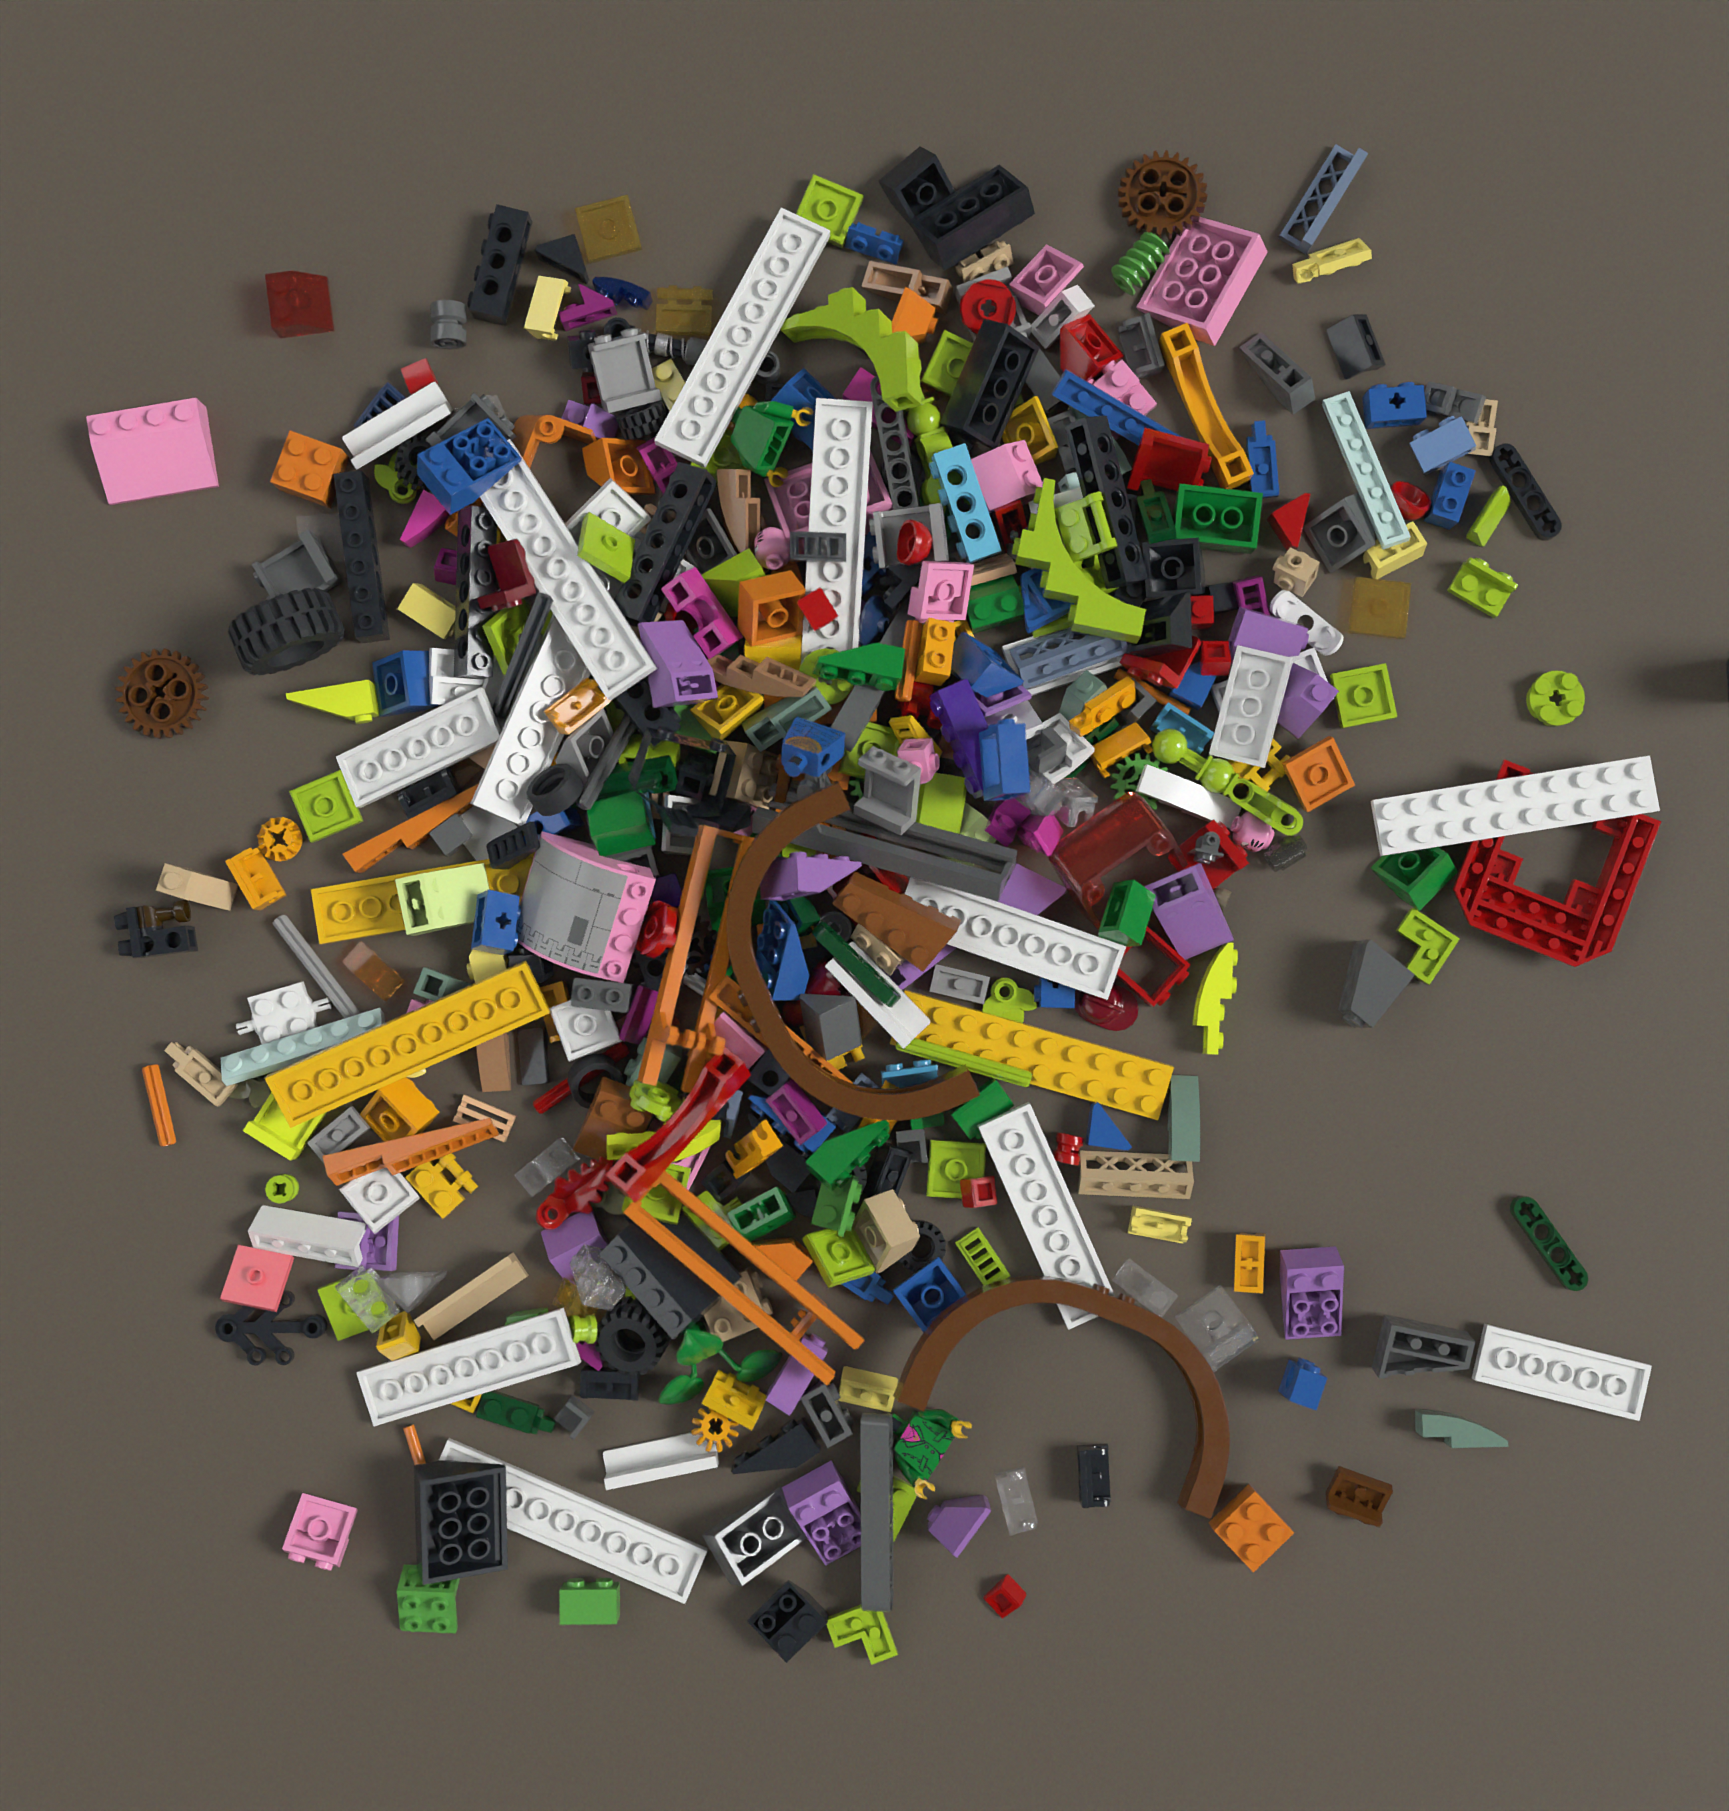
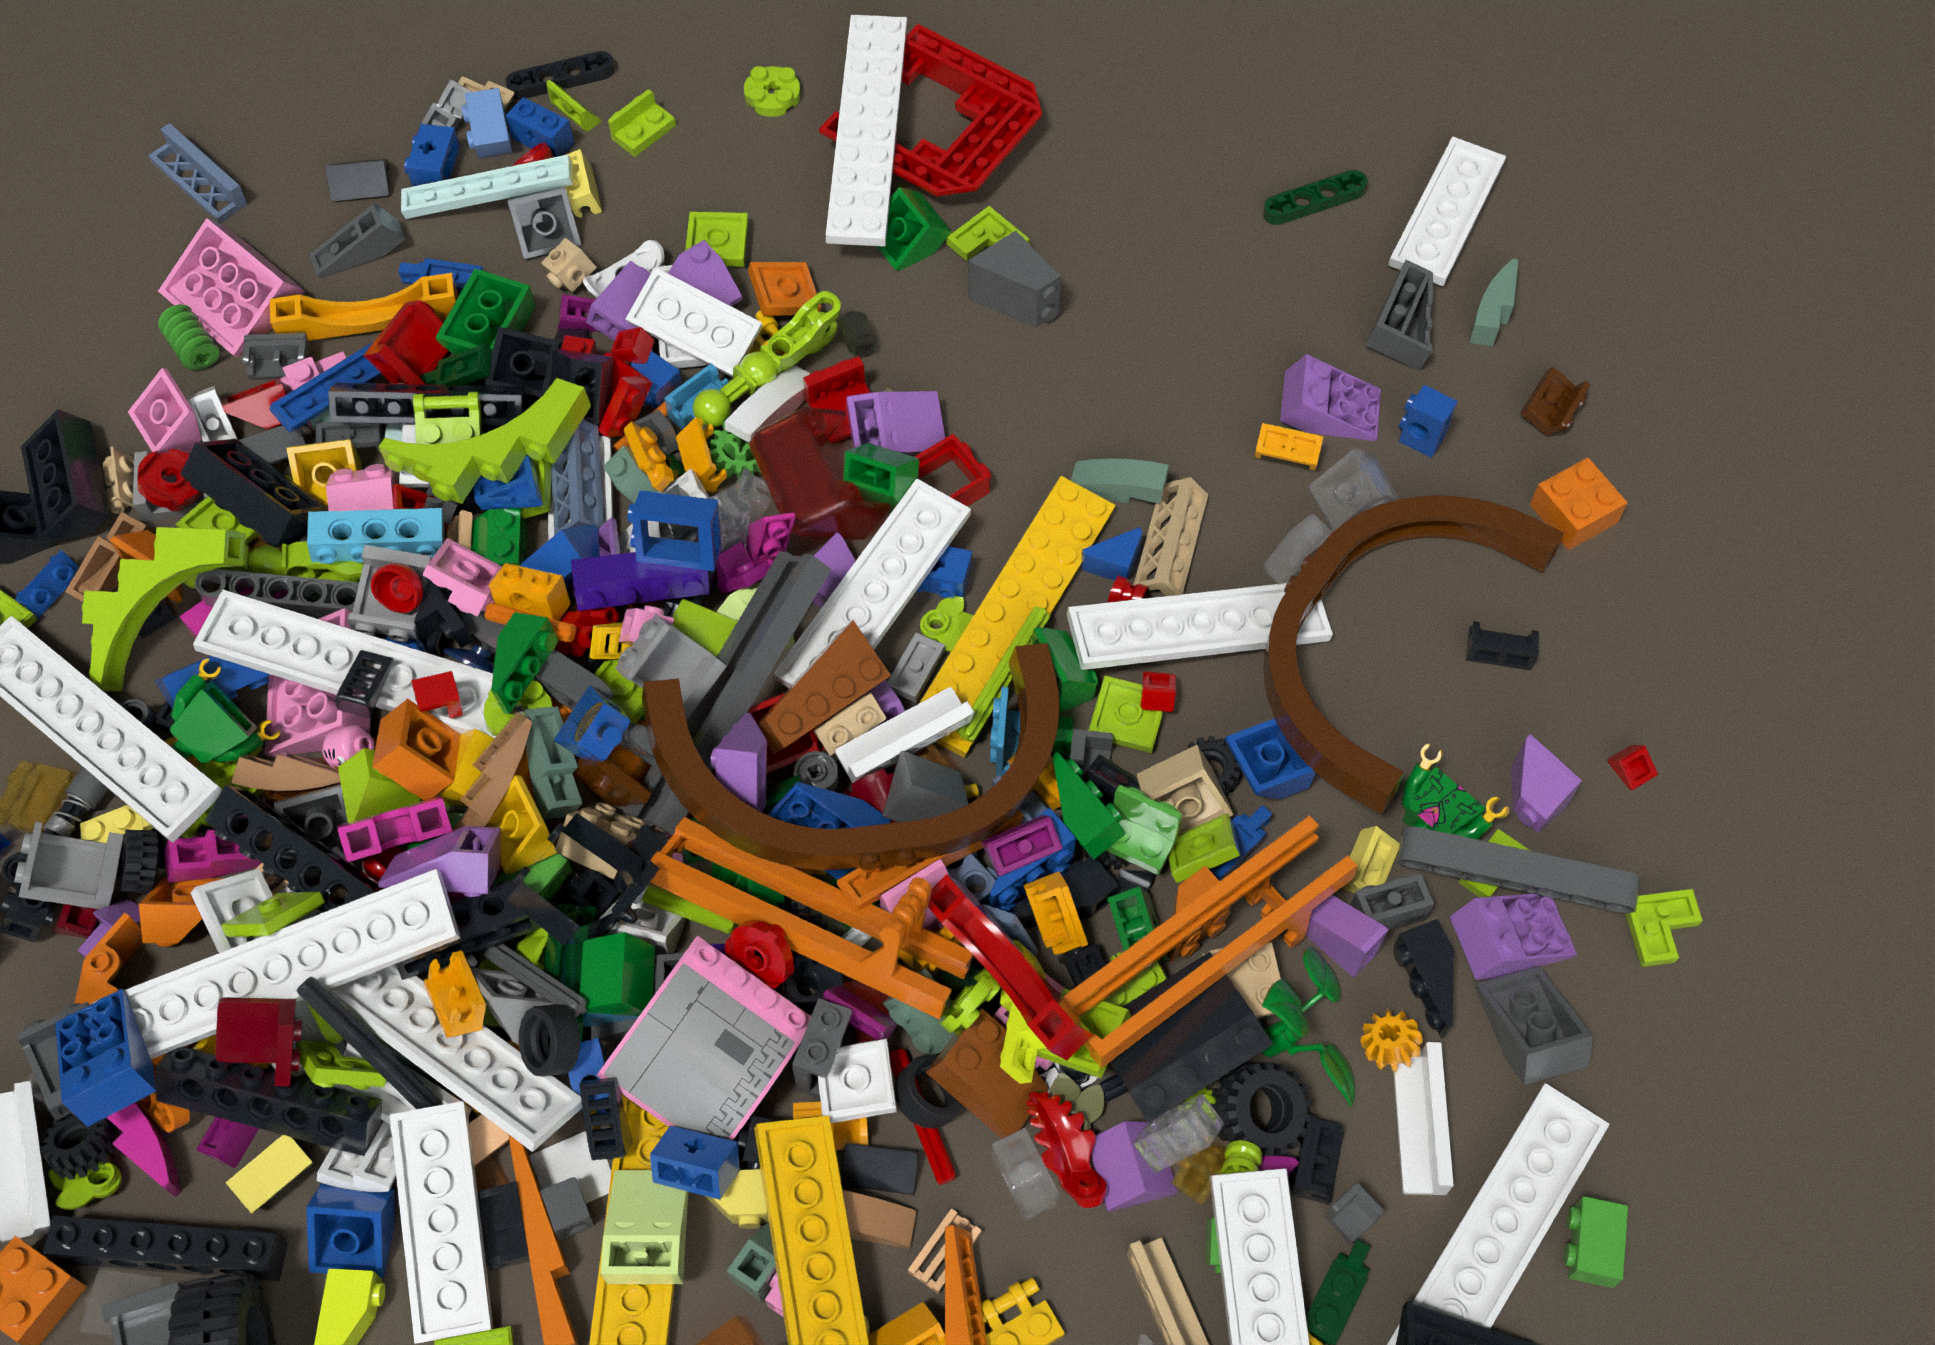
camera: 75 degrees left, 25 degrees down
(735, 1399) = (1360, 1006): yellow plate -> none
(789, 1620) = (1642, 999): black slope -> none
(856, 964) = (862, 745): dark green beam -> none
(970, 1237) = (1244, 693): lime slope -> none
(1016, 1500) = (1510, 732): clear hinge -> none
(1112, 1014) = (981, 531): dark red piece -> none
(1159, 1224) = (1230, 526): light yellow hinge -> none
(1163, 171) = (125, 305): reddish brown gear -> none
(1206, 849) = (831, 387): dark grey hinge -> none
(1215, 985) = (984, 425): neon yellow slope -> none
(1251, 832) = (825, 353): bright pink head -> none
(1289, 521) = (517, 262): red slope -> none
(1331, 259) = (262, 179): light yellow hinge -> none
(1379, 607) = (631, 210): clear yellow plate -> none

